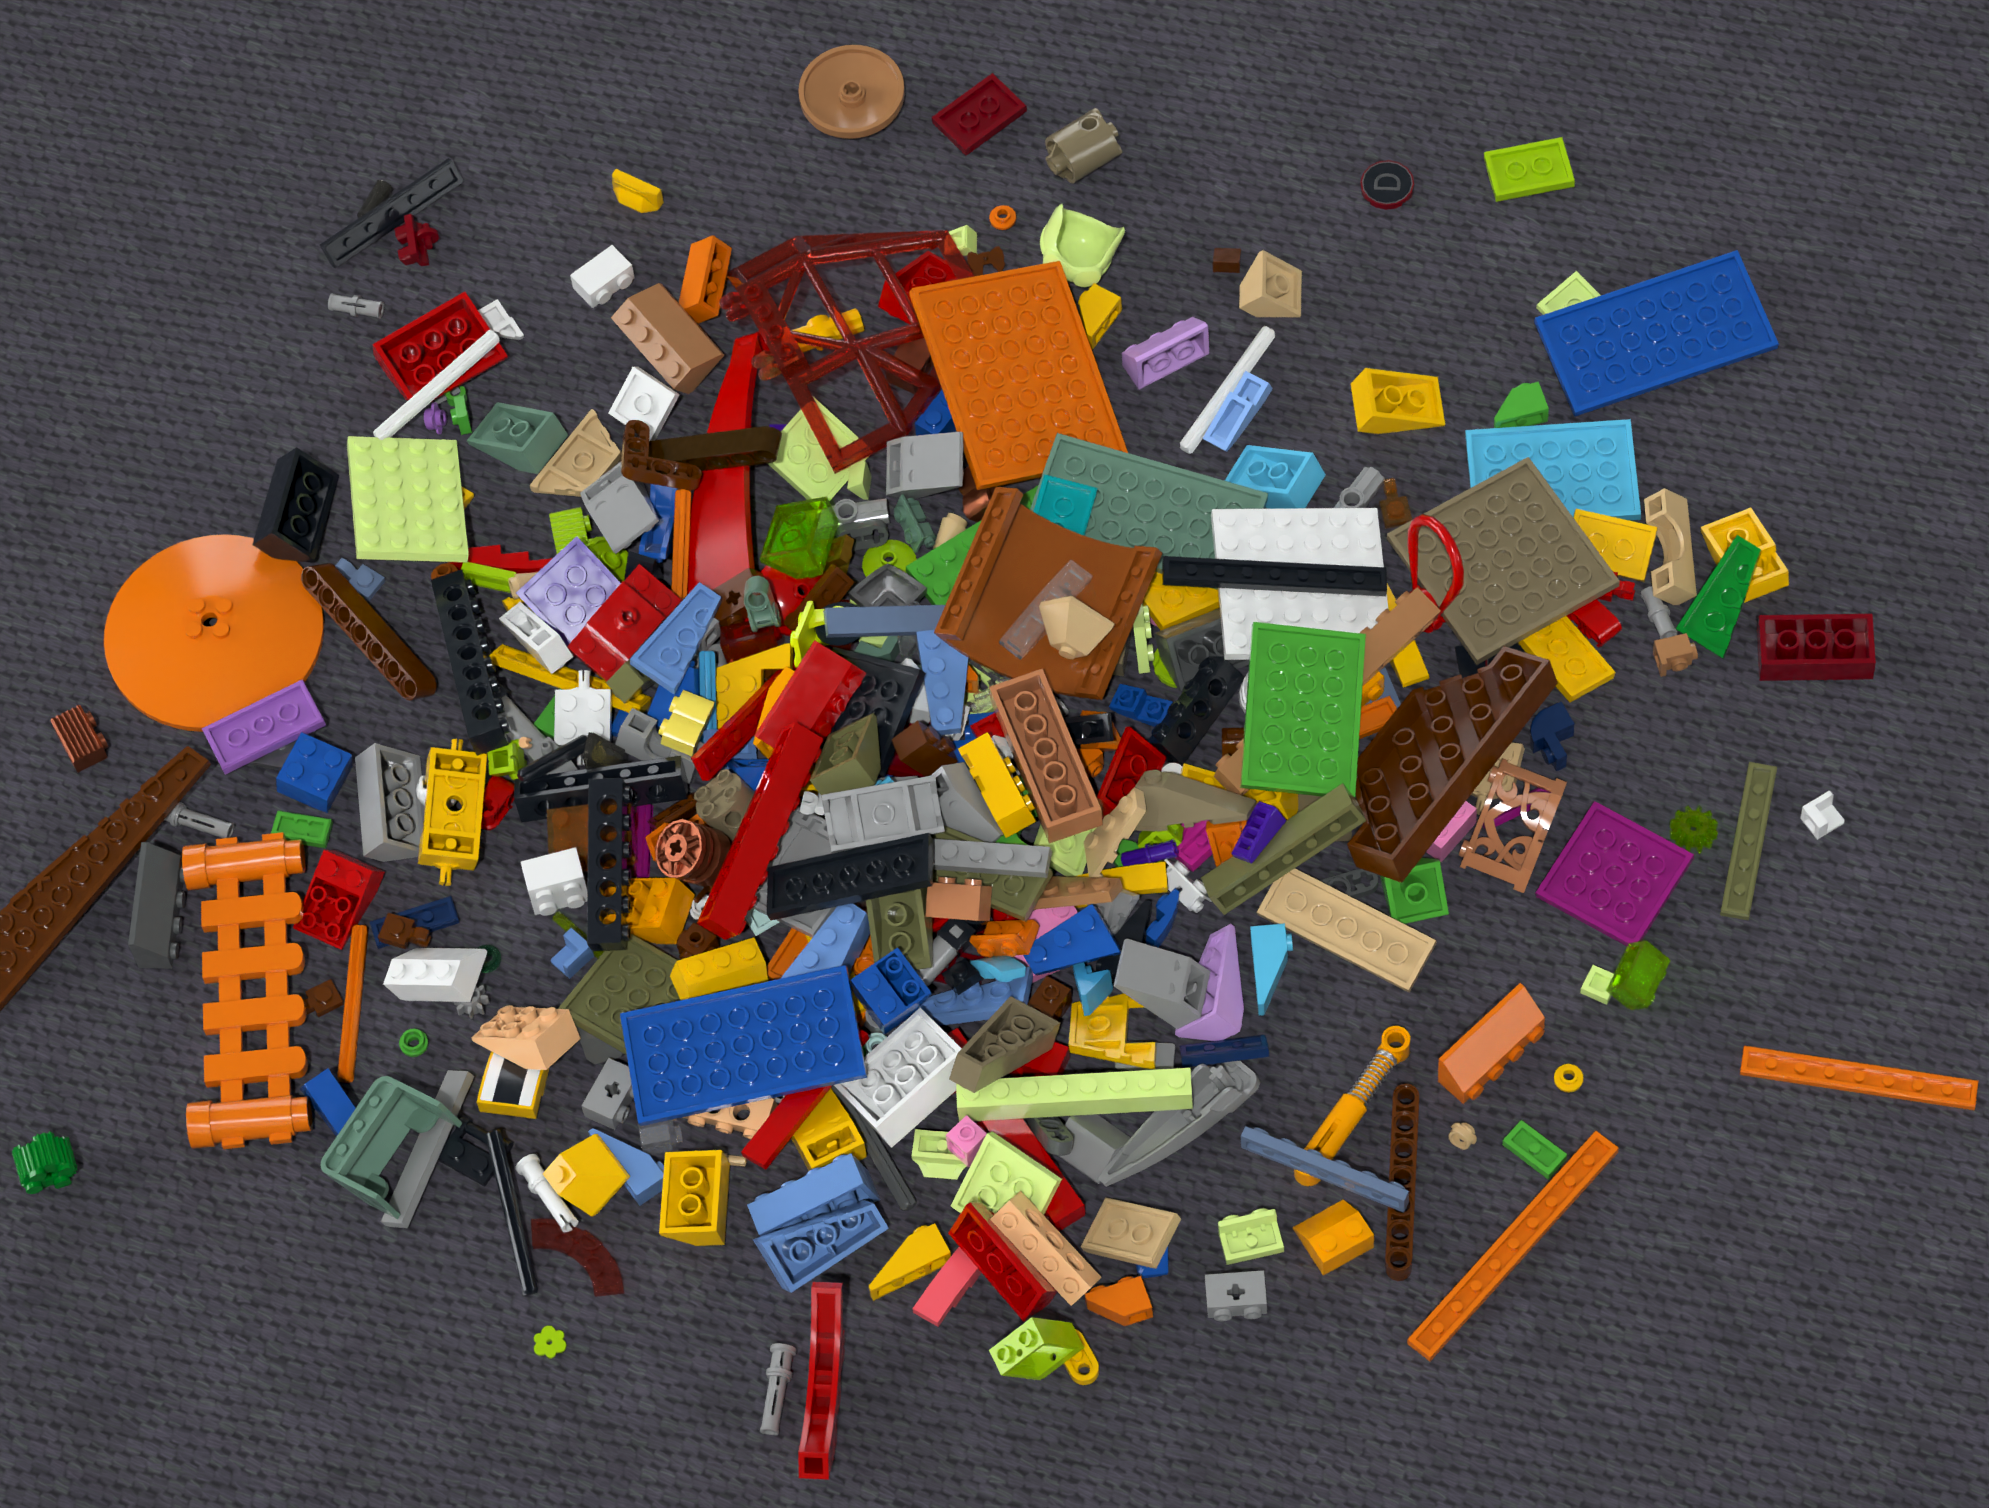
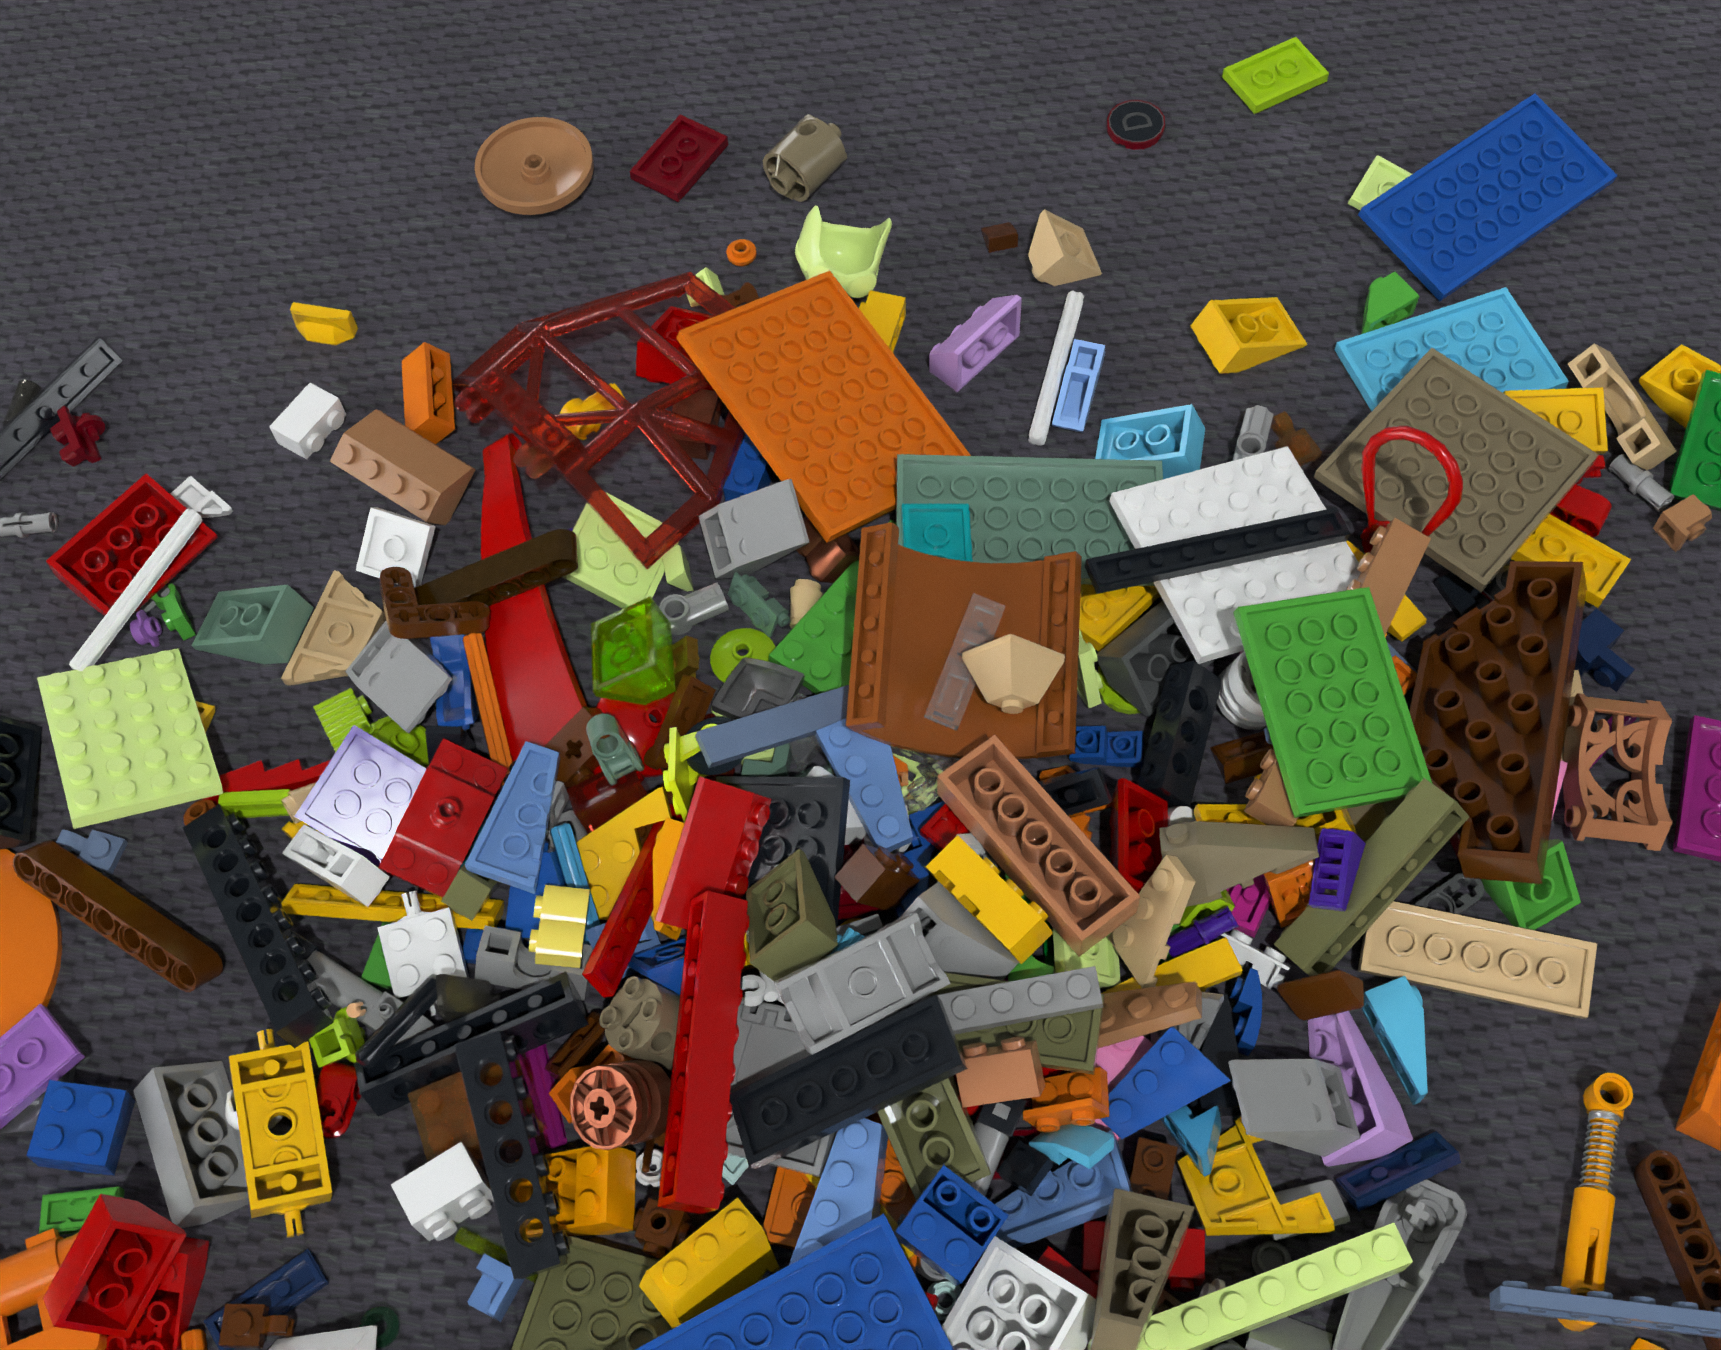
camera: 20 degrees left, 0 degrees up
(323, 863) = (112, 1268): none -> red slope
(862, 533) = (702, 629): dark grey beam -> none
(1219, 919) = (1323, 994): none -> reddish brown slope

